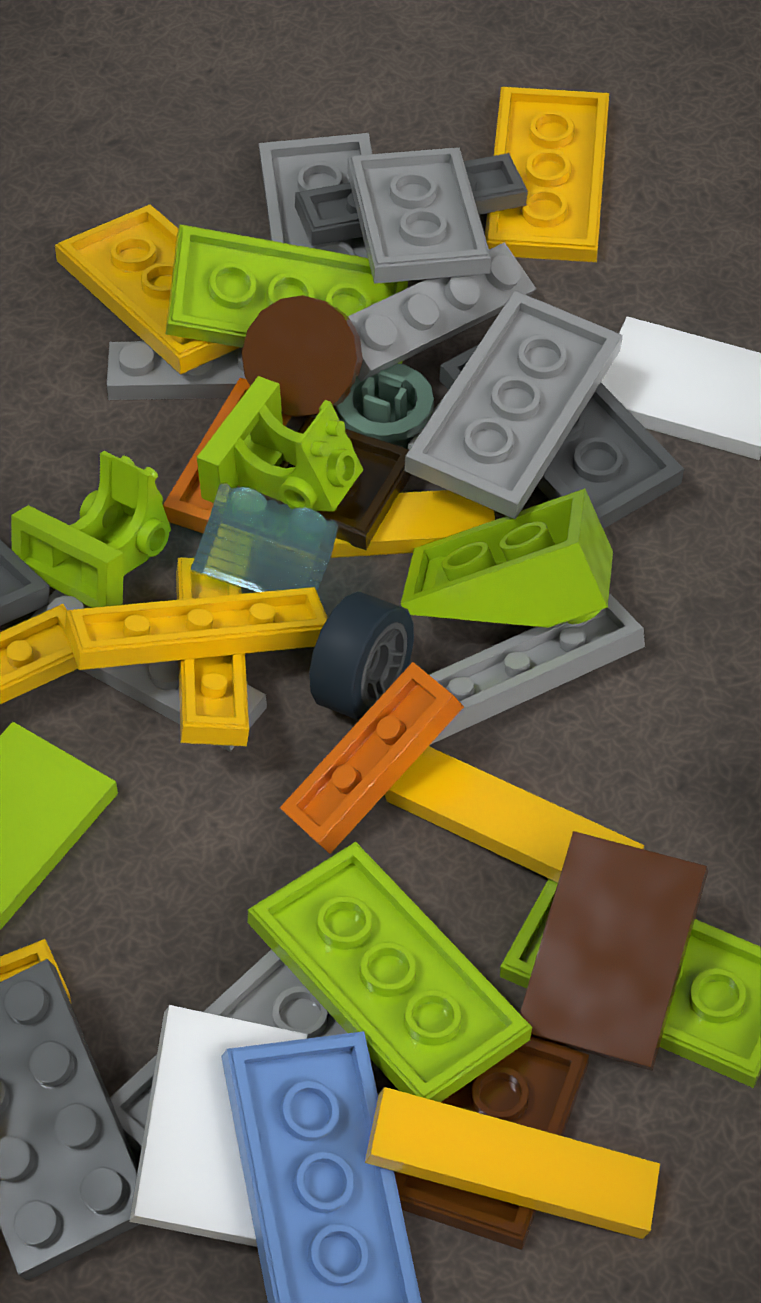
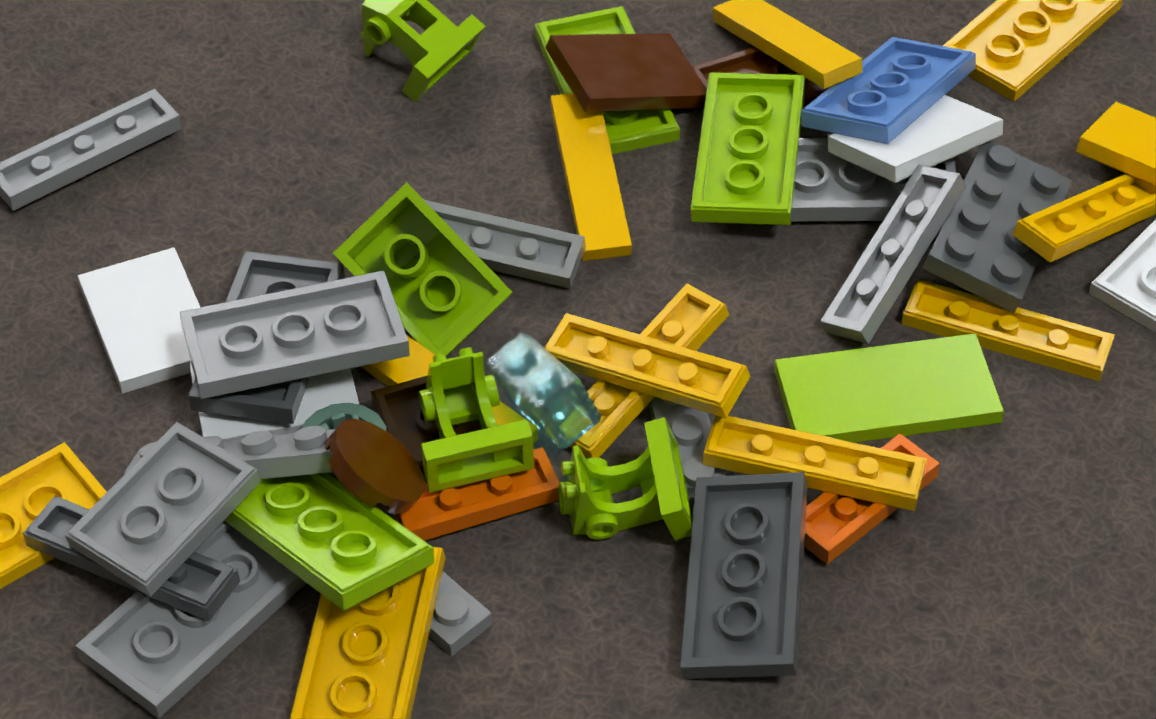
camera: 135 degrees left, 5 degrees down
(101, 965) = (893, 254): none -> light grey plate
(360, 653) = (567, 281): black wheel -> none
(371, 757) = (628, 239): orange plate -> none

